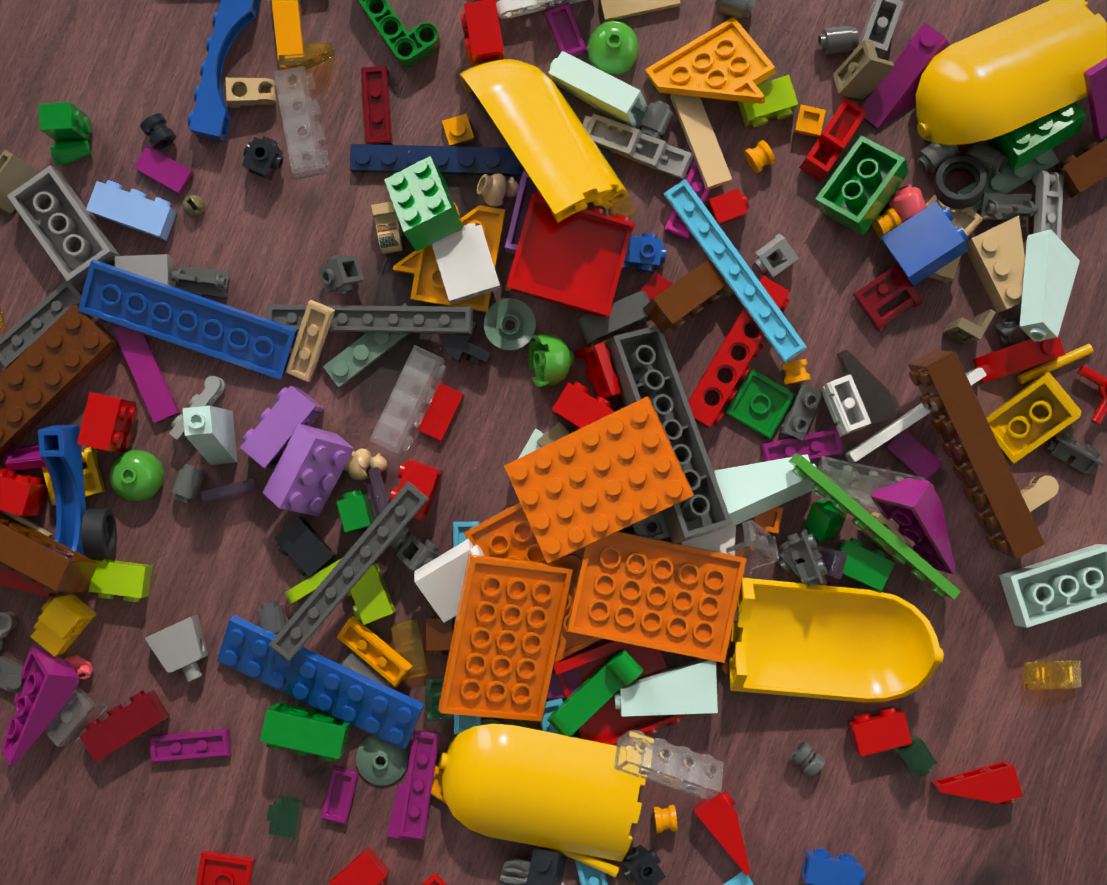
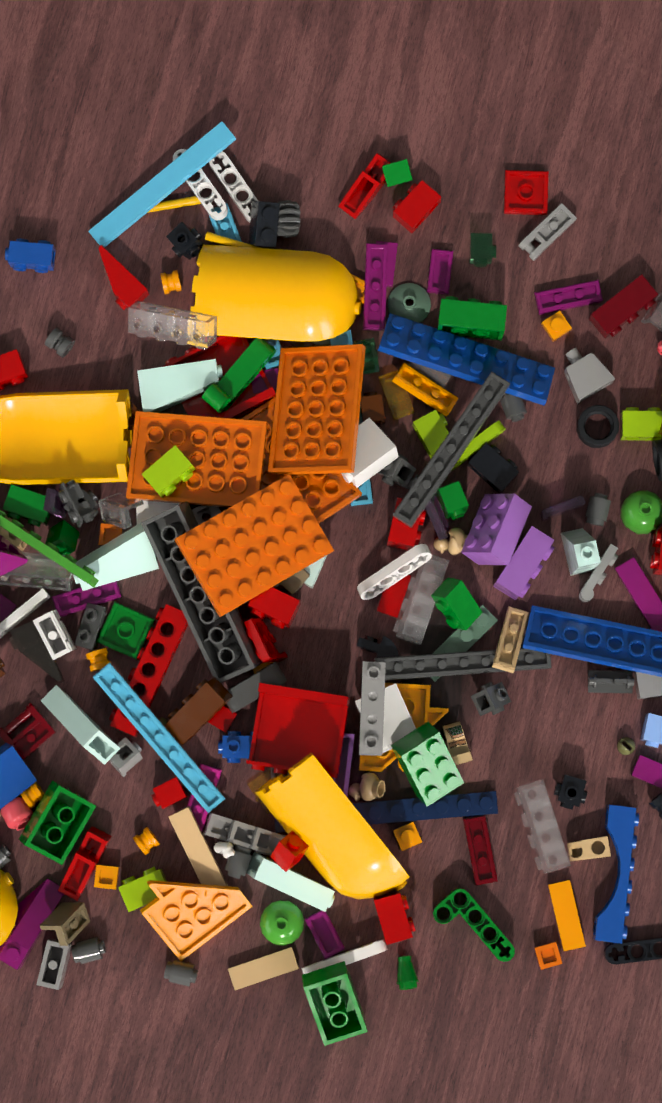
camera: 170 degrees right, 5 degrees down
(155, 587) = (609, 414): none -> black tyre
(202, 829) = (548, 231): none -> light grey plate
(208, 711) = (556, 326): none -> light orange plate
(314, 55) = (539, 886): clear yellow slope -> none
(367, 388) = (456, 604): none -> green brick
(435, 434) = (394, 571): none -> white beam
(479, 265) = (372, 708): none -> light grey fence
(509, 310) = (331, 673): sand green dish -> none
(550, 359) = (305, 645): bright green cylinder -> none
(595, 117) = (289, 851): none -> red brick
(668, 134) = (224, 848): none -> white arm
(692, 581) = (169, 472): none -> lime brick
(825, 294) = (80, 725): none -> light aqua slope

